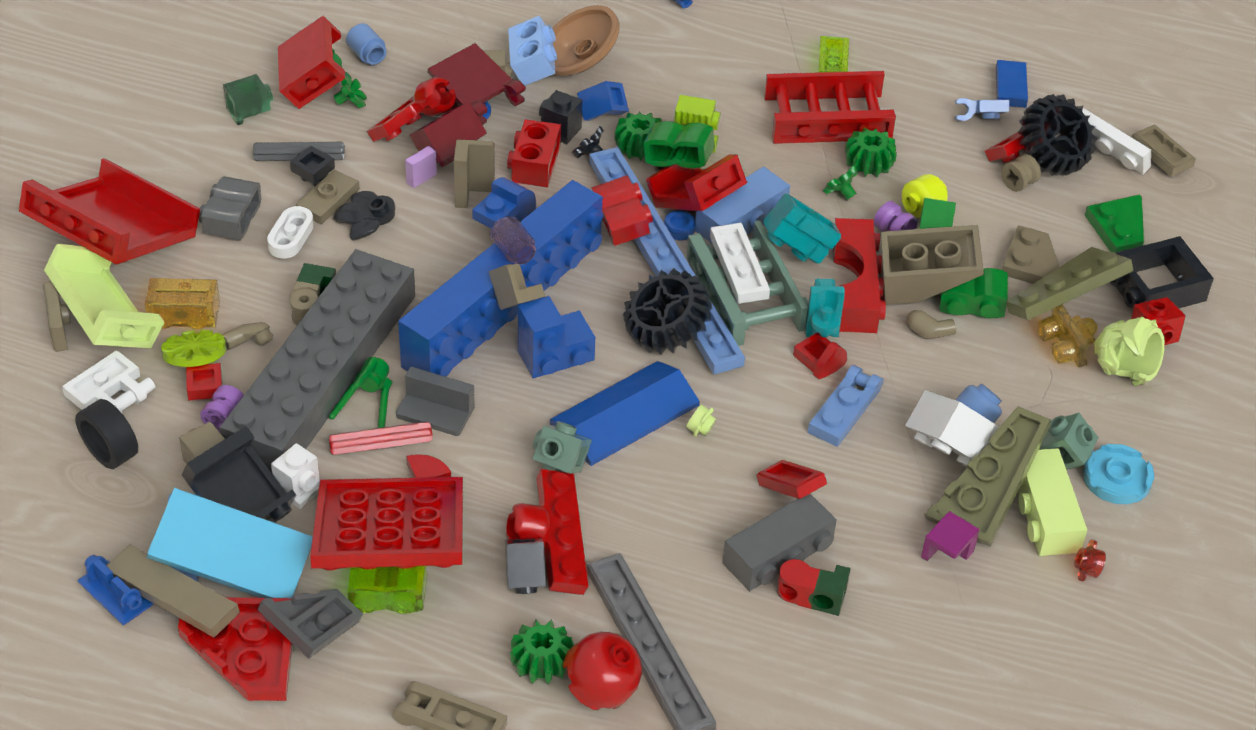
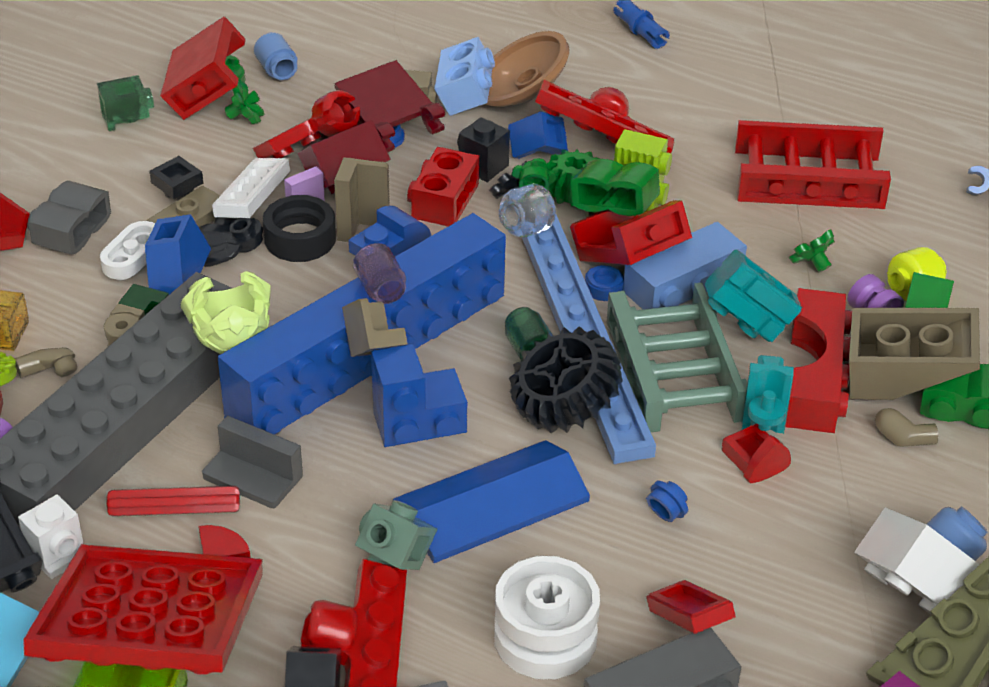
camera: 10 degrees right, 5 degrees down
(289, 150) = (147, 160): dark grey axle -> none
(331, 234) = (174, 252): none -> blue slope
(370, 379) = (178, 426): green plant -> none
(376, 168) = (251, 188): none -> white plate
(399, 285) = (229, 315): none -> yellowish green helmet
(424, 216) = (299, 210): none -> black tyre
(610, 139) = (534, 173): none -> green plate
(610, 166) = (527, 210): none -> clear head
(623, 211) = (532, 256): red brick -> none
(626, 273) = (524, 327): none -> clear green brick
(653, 75) = (604, 111): none -> red plate
(687, 498) = (546, 617): none -> white wheel
(701, 421) = (586, 519): yellowish green plate -> none
(739, 263) = (667, 330): white plate -> none
(760, 400) = (667, 500): none -> blue plate
(833, 54) = (825, 106): clear neon green plate -> none
(845, 406) = (779, 520): medium blue plate -> none
(870, 152) = (855, 218): green gear -> none

